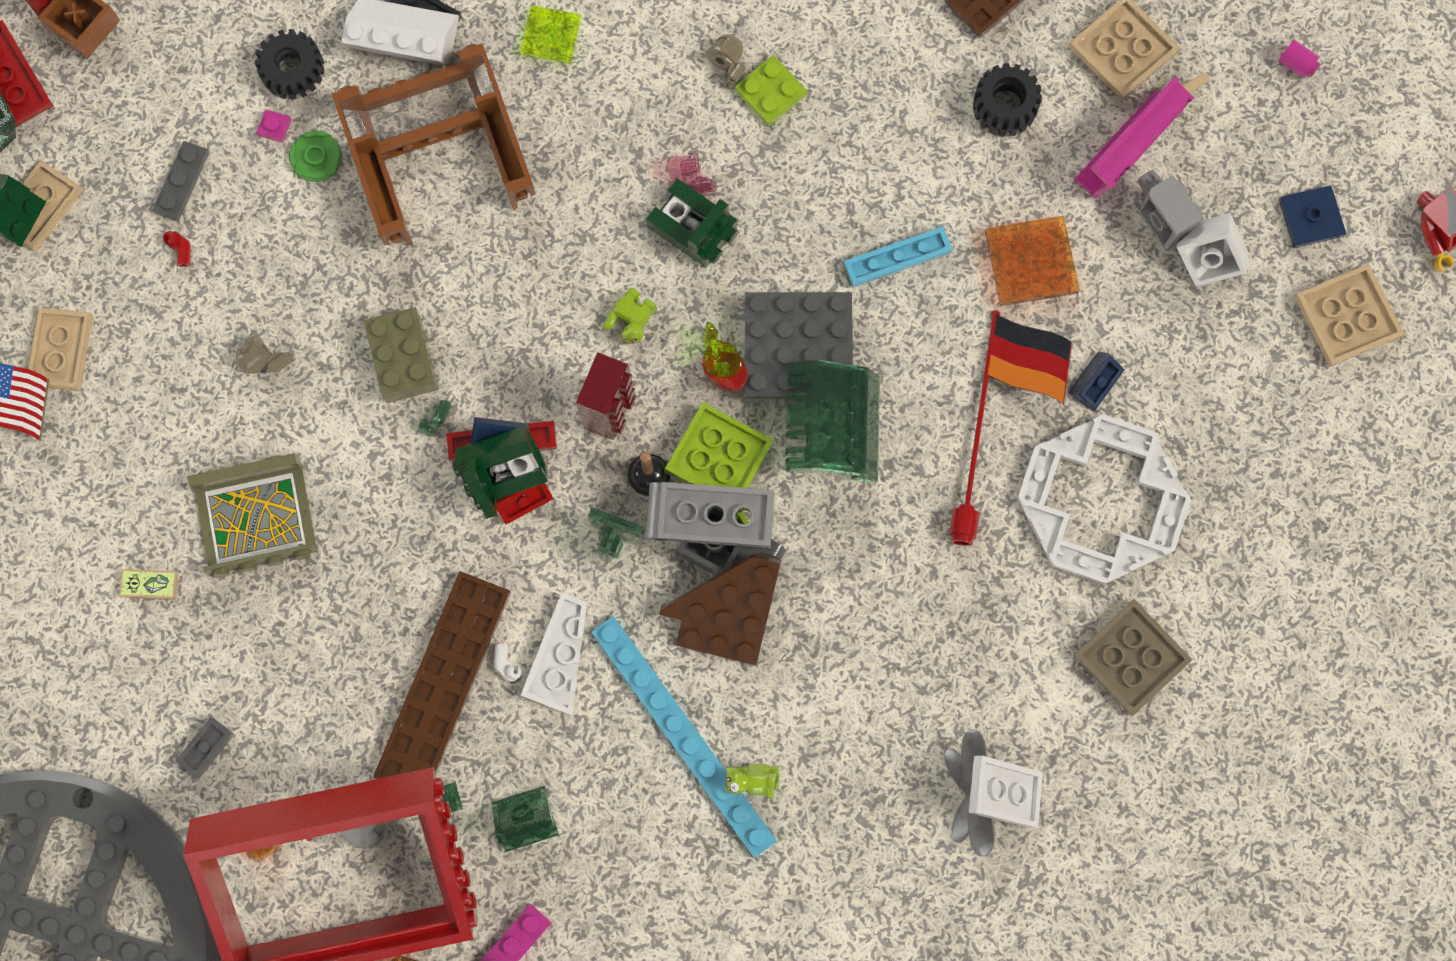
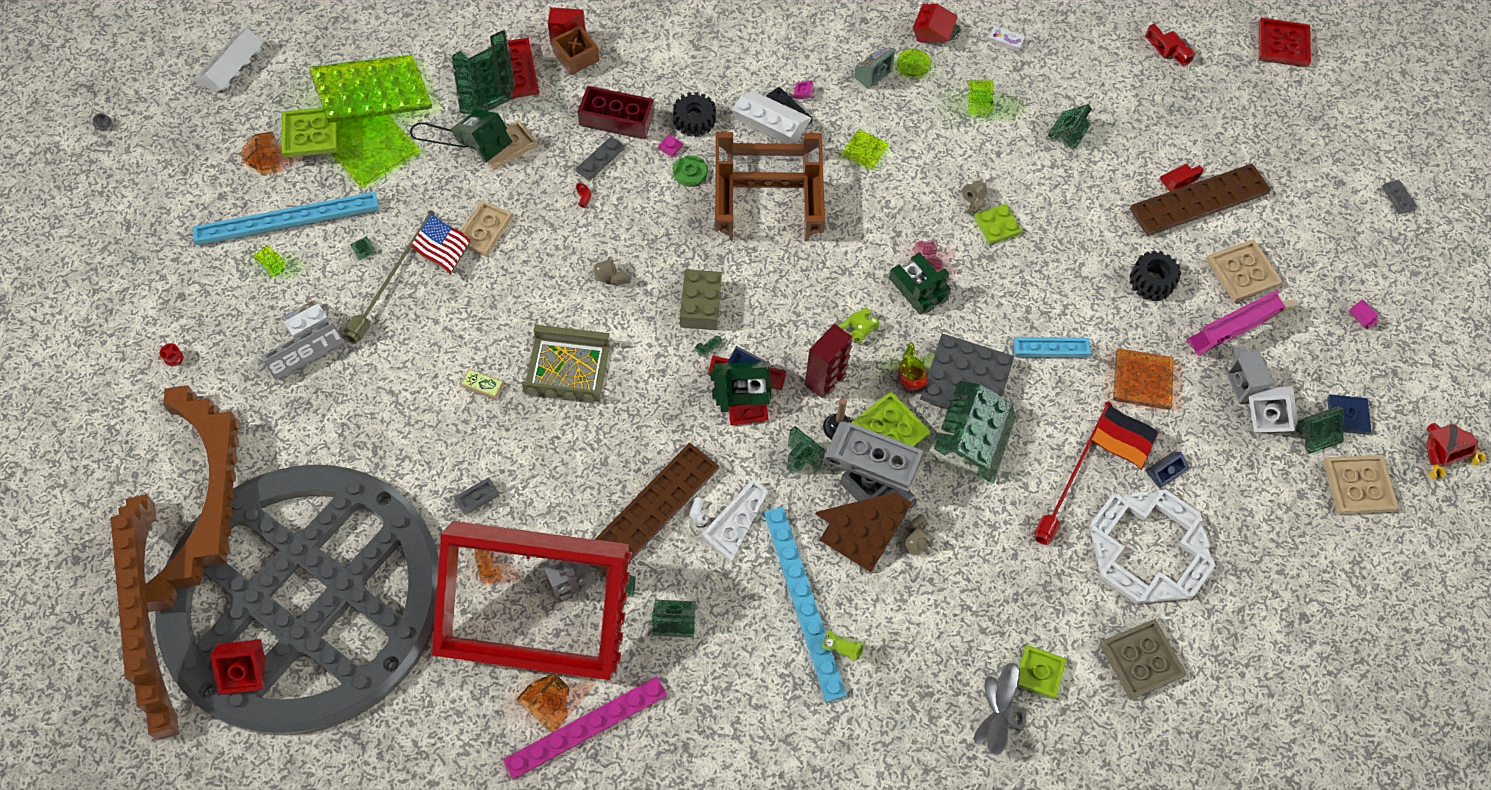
camera: 15 degrees right, 15 degrees down
(176, 101) = (616, 112): none -> dark red brick
(802, 601) = (918, 540): none -> dark tan piece
(1005, 792) = (1024, 716): white plate -> none
(1010, 721) = (1041, 671): none -> lime plate
(1281, 254) = (1322, 429): none -> clear green bracket

